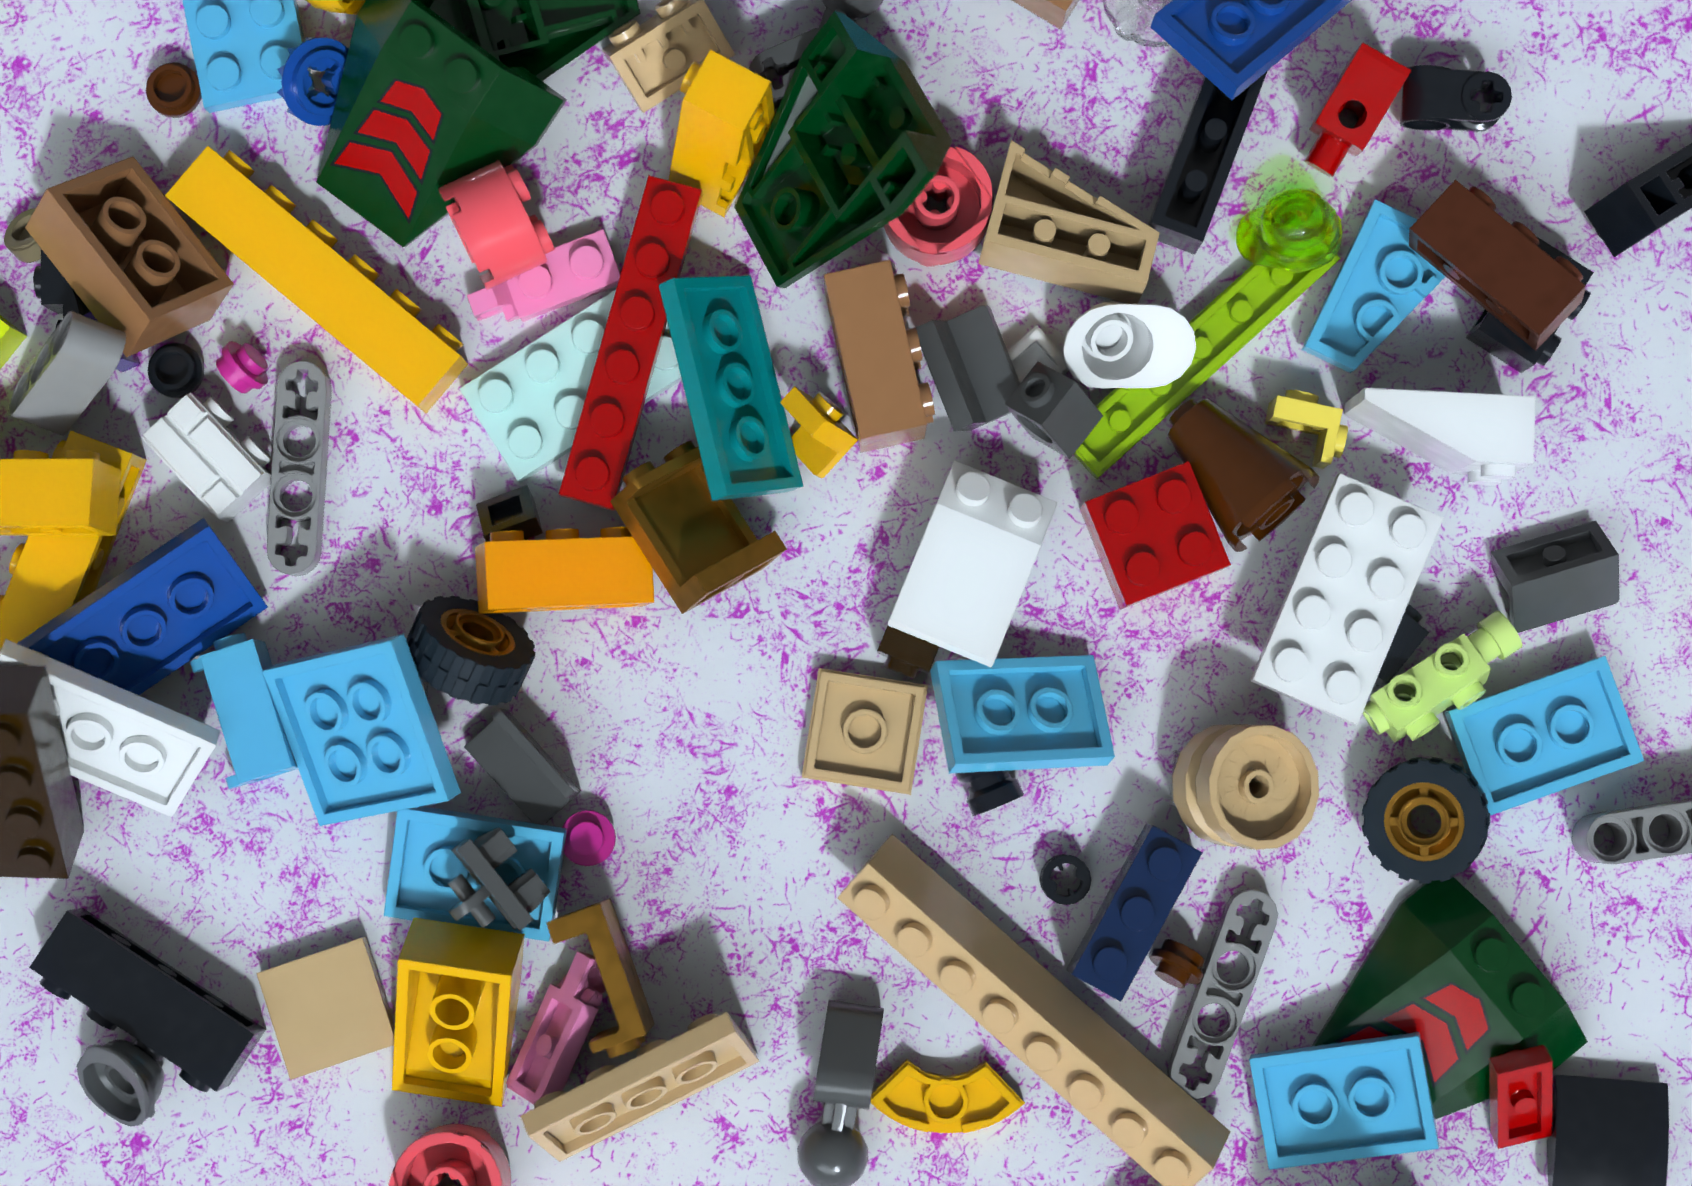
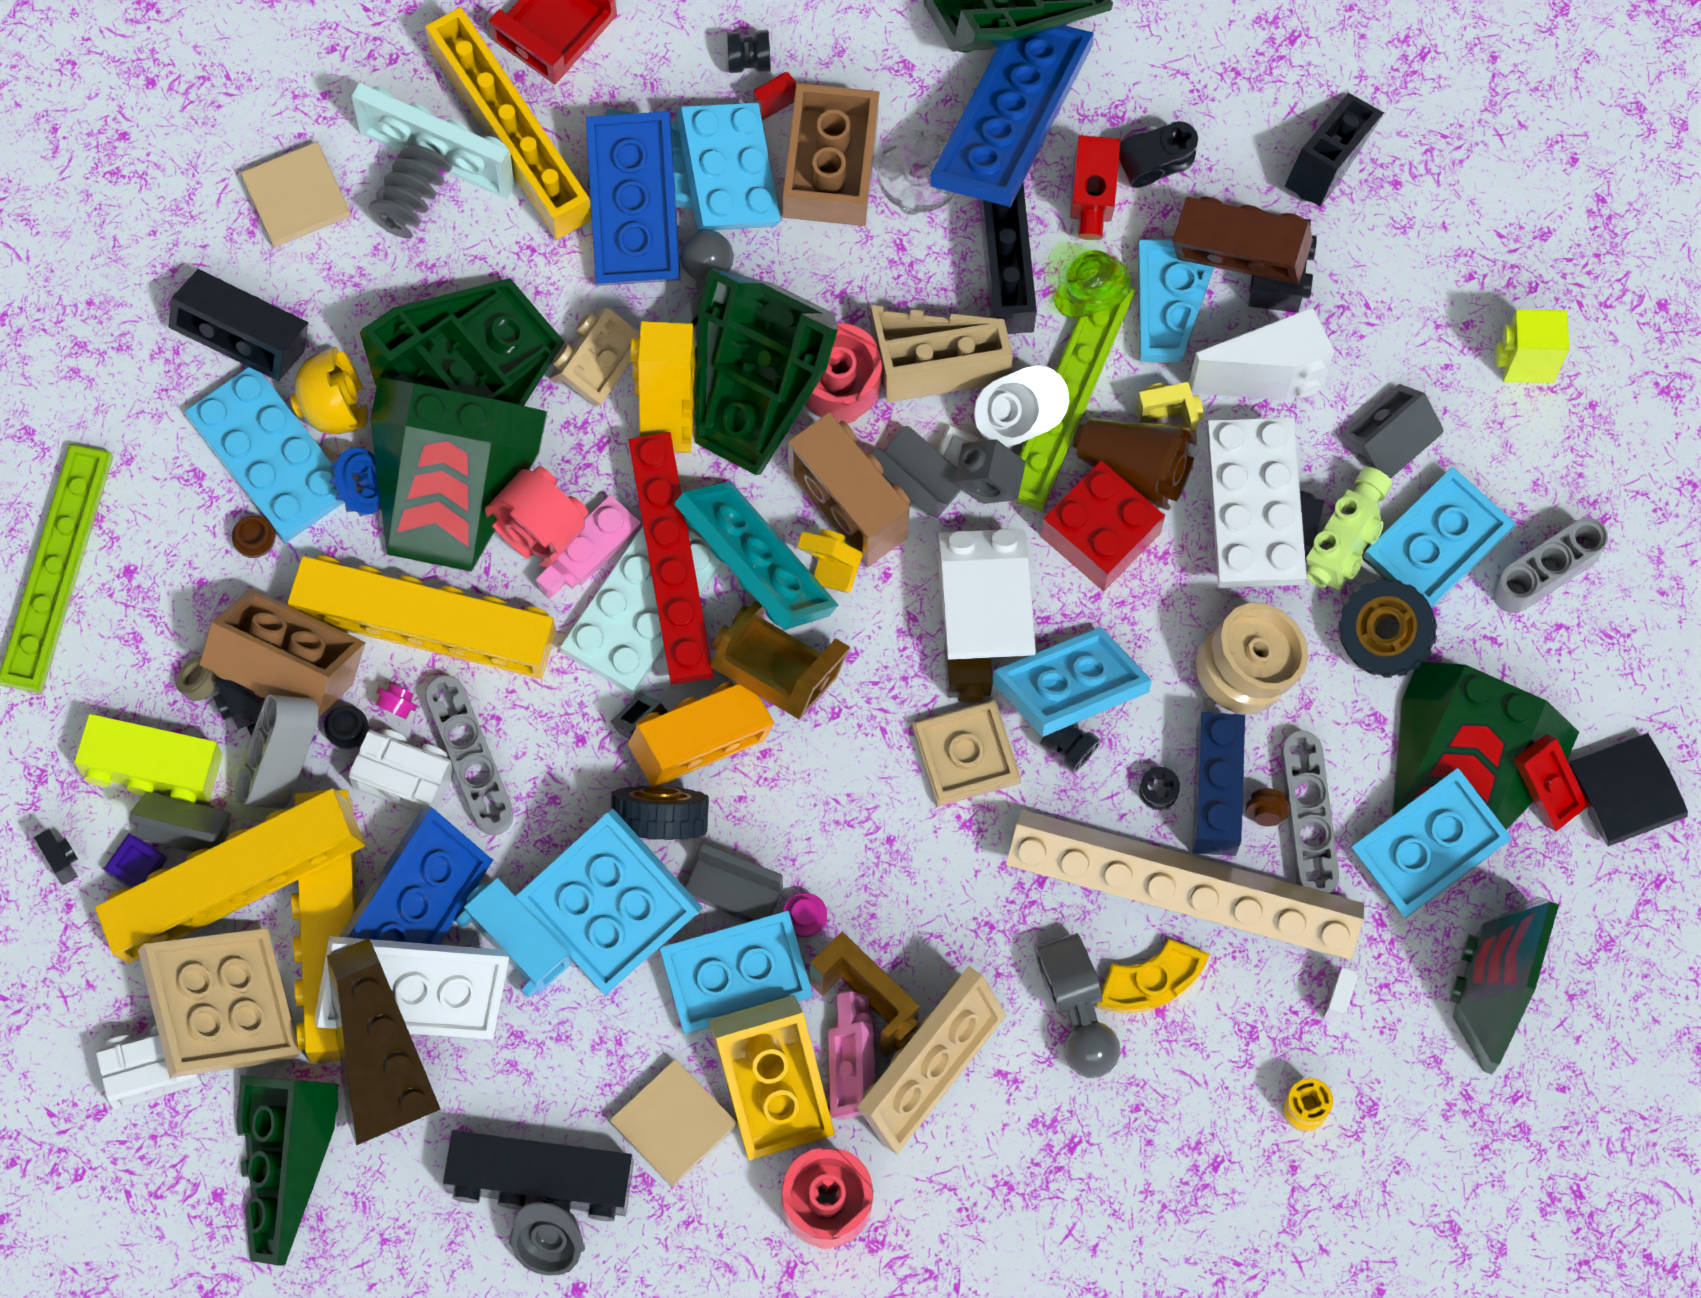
camera: 30 degrees left, 15 degrees down
(512, 901) = (753, 967): dark grey hips -> none

